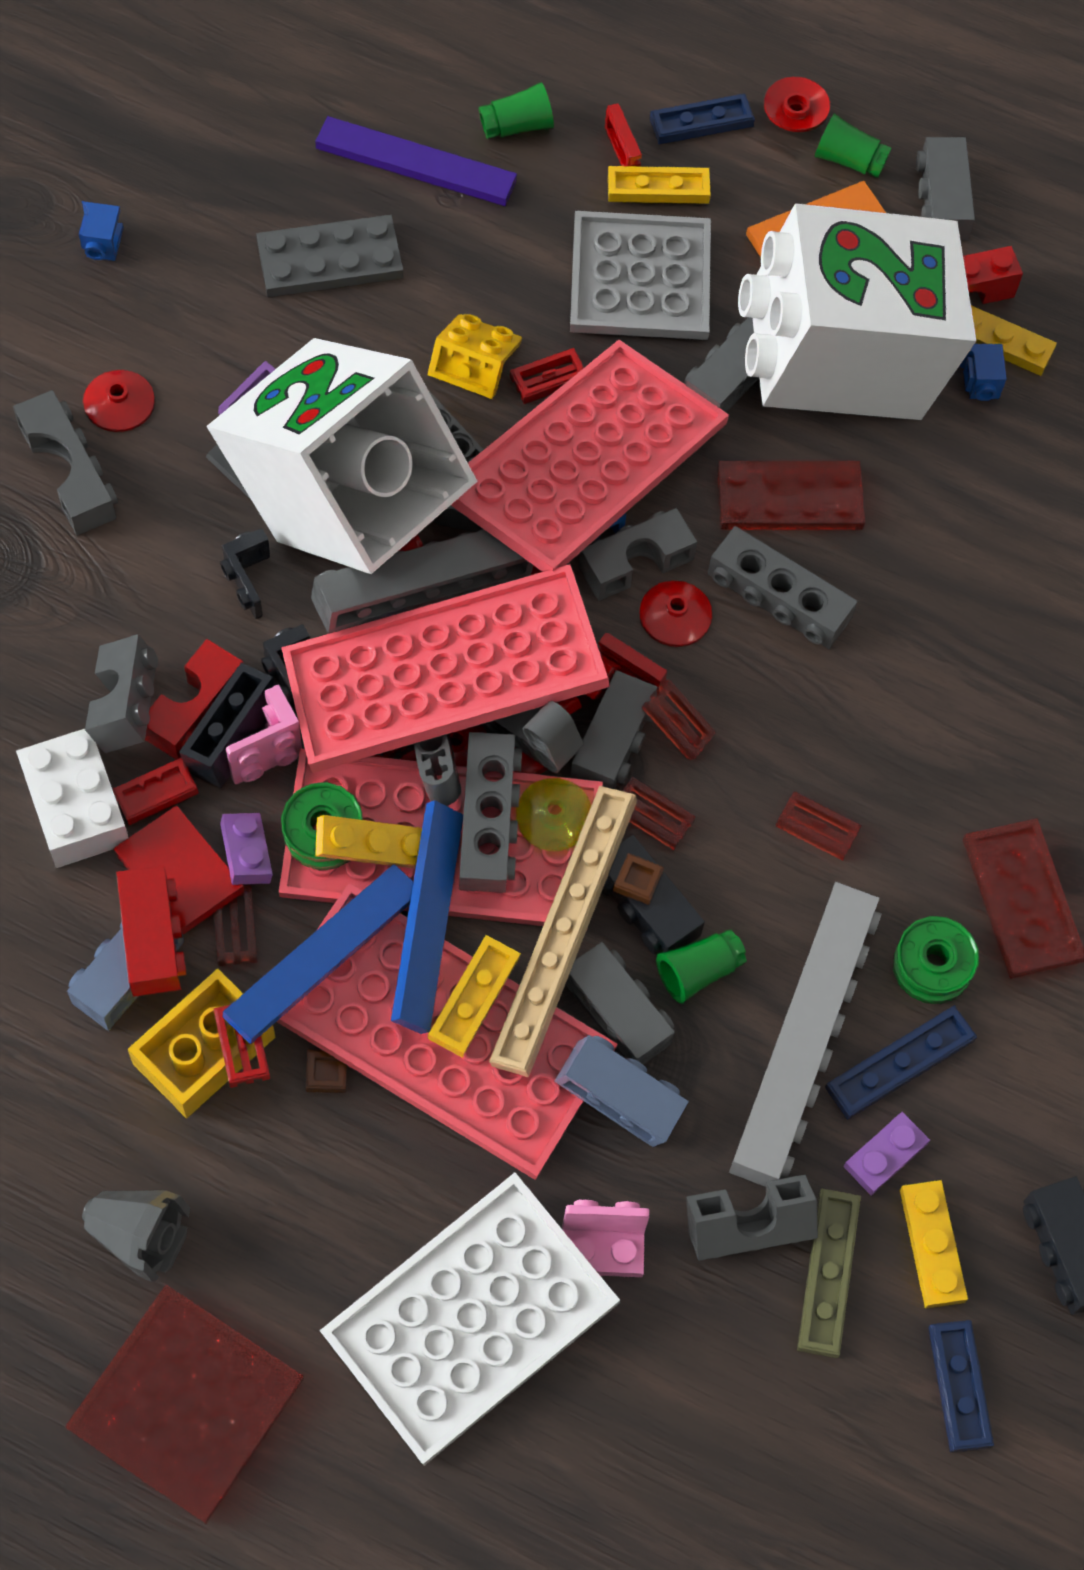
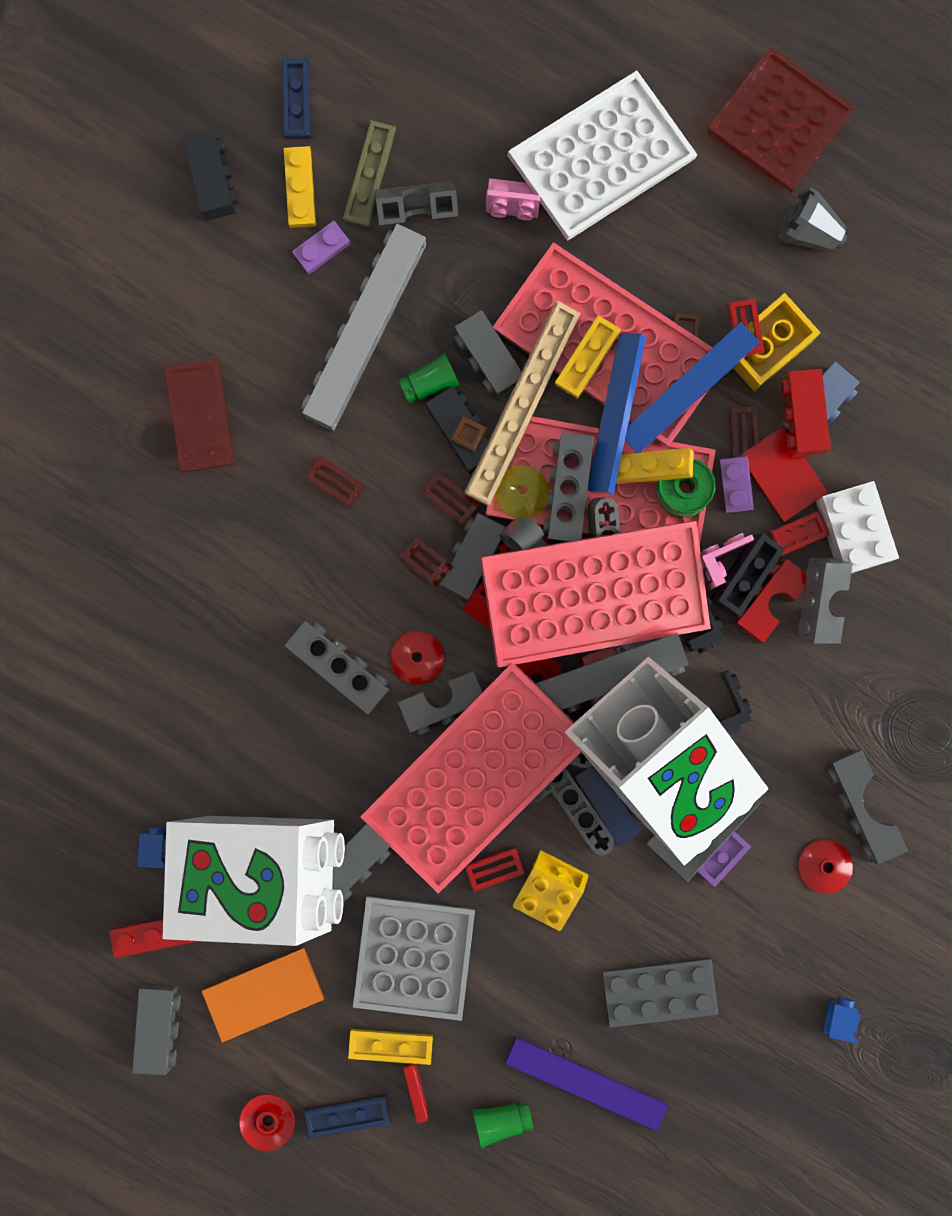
camera: 170 degrees left, 20 degrees up
(622, 1090) = (493, 290): sand blue brick -> none
(632, 662) = (454, 610): red tile -> none
(791, 495) = (319, 751): clear red plate -> none
(852, 148) = (227, 1073): green plant -> none
(900, 1062) = (302, 308): dark blue tile -> none
(949, 942) = (262, 358): green wheel -> none
(1019, 344) = (131, 883): yellow plate -> none

